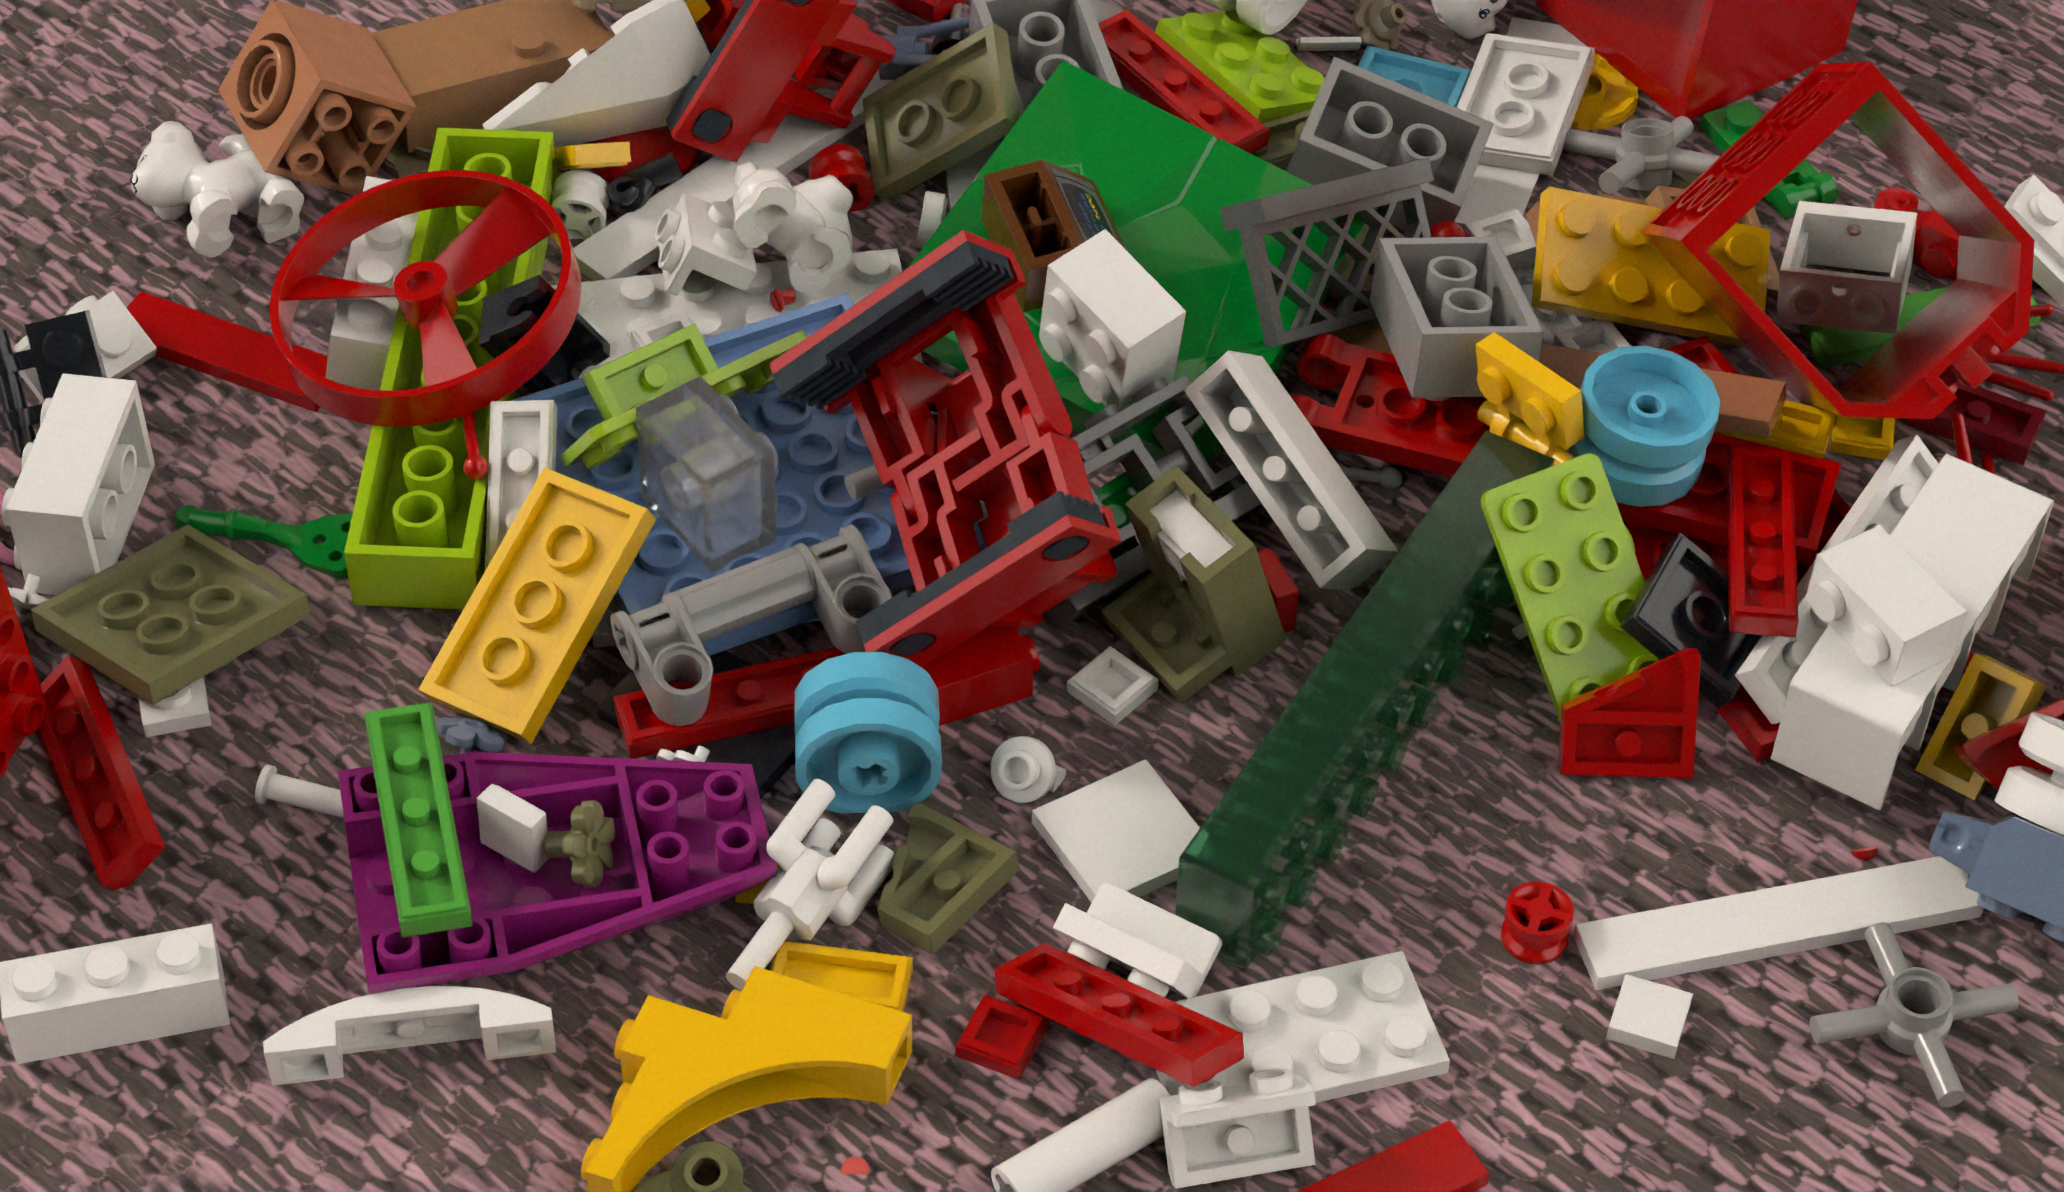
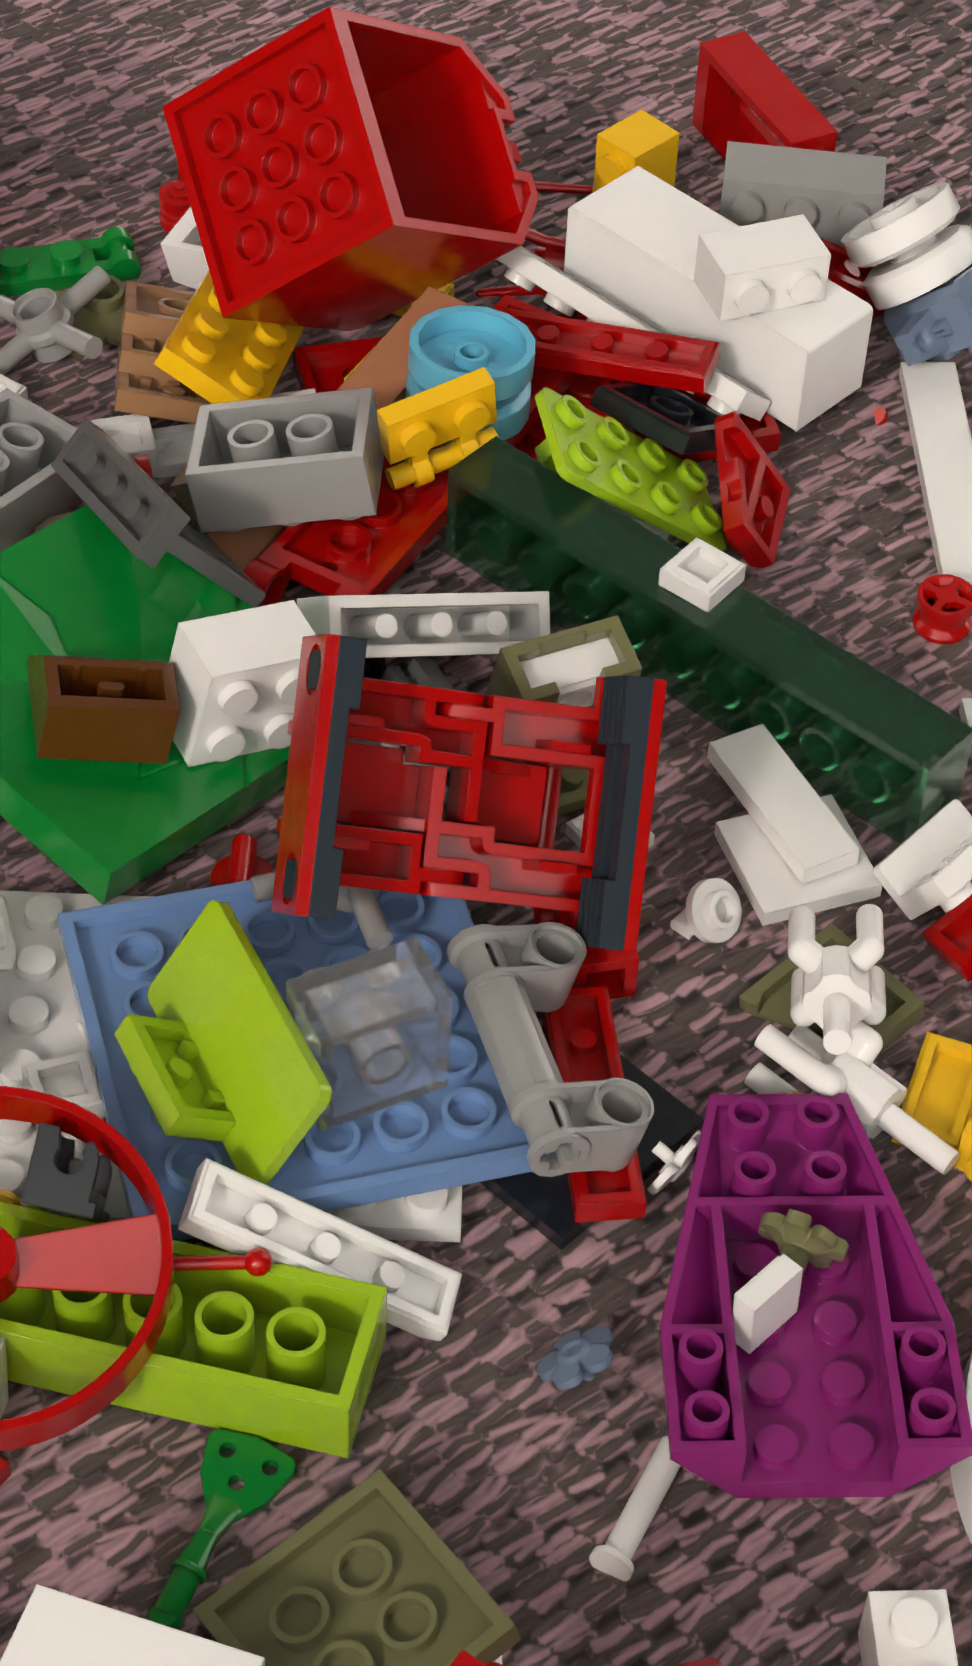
camera: 80 degrees left, 0 degrees up
(417, 820) = (773, 1367): bright green tile -> none
(537, 604) = (454, 1246): yellow plate -> none
(781, 299) = (19, 984): red piece -> none
(868, 731) = (690, 997): medium azure wheel -> none
(879, 818) = (837, 981): none -> white plant
(1165, 803) = (783, 804): none -> white tile
(1394, 637) = (702, 574): none -> white tile

